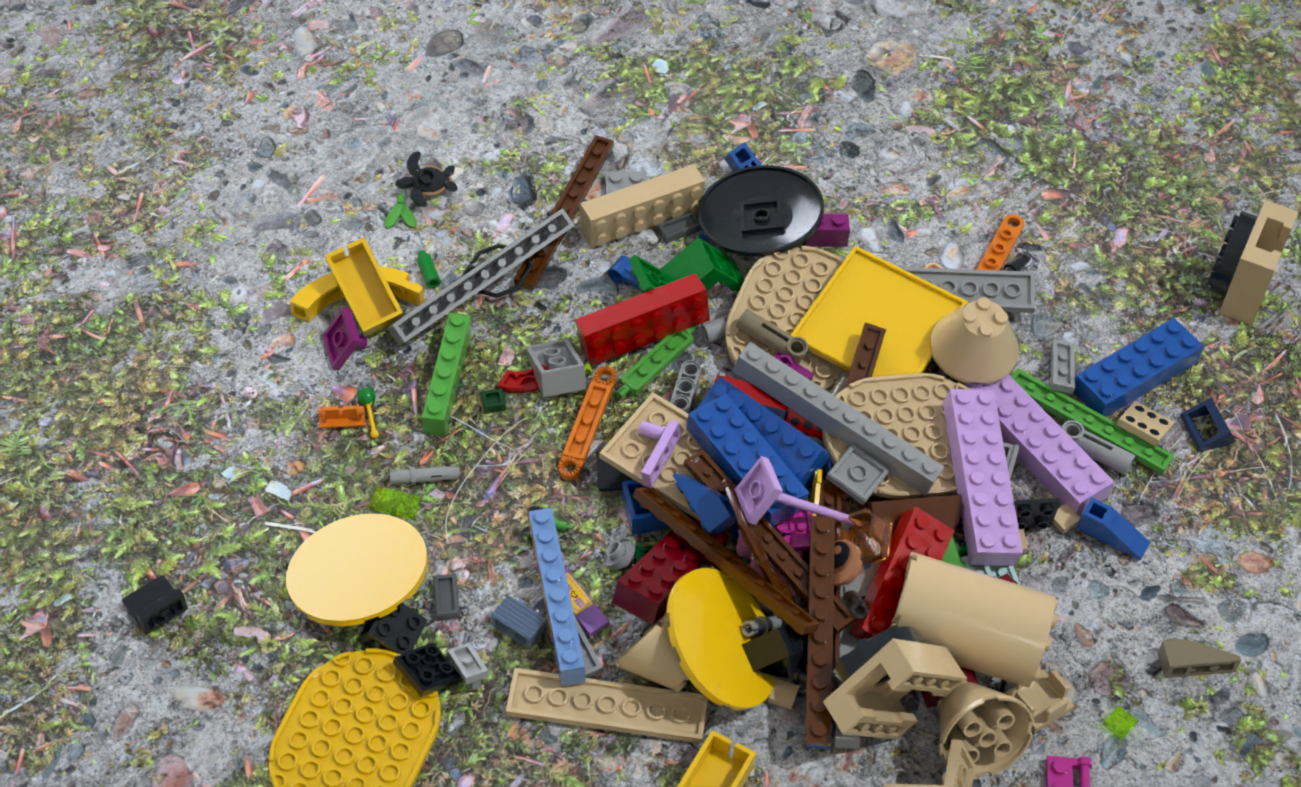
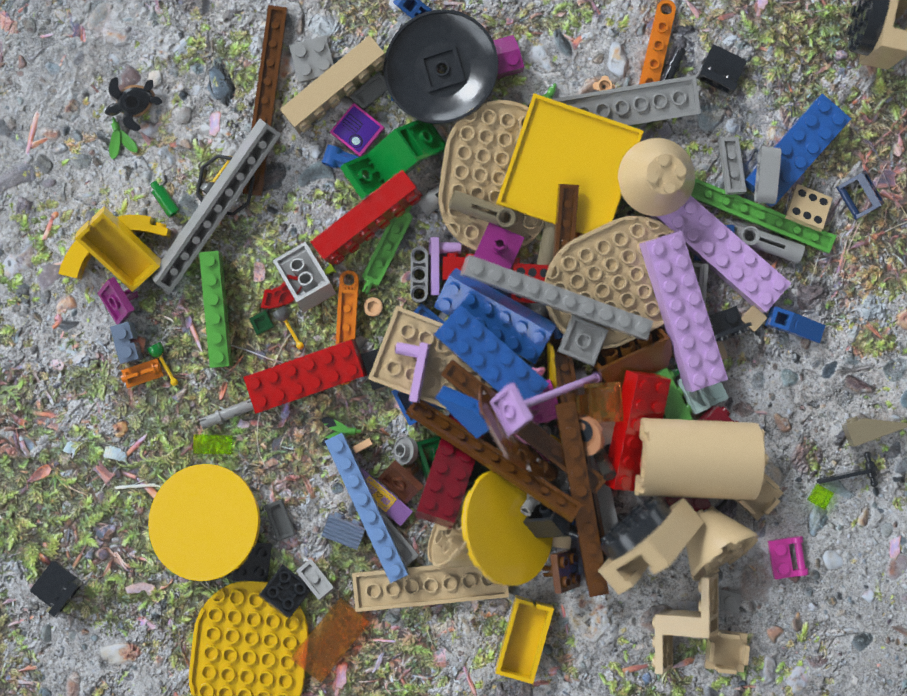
camera: 10 degrees left, 35 degrees up
(336, 381) = (126, 351): none -> sand blue piece
(463, 737) = (330, 640): none -> clear orange plate
(518, 396) = (282, 315): none -> hinge
(526, 452) = (305, 376): none -> red brick
(570, 538) = (363, 445): none -> light nougat tile
(601, 578) = (401, 481): none -> copper tile
(622, 412) = (373, 307): none -> light nougat tile
(654, 249) = (357, 130): none -> slope
(710, 371) = (435, 249): none -> lavender piece
(779, 721) = (564, 570): none -> reddish brown plate
(1064, 284) = (721, 69): none -> black bracket
(1100, 368) = (767, 175): none -> light grey beam
(1165, 703) = (870, 469): none -> black piece

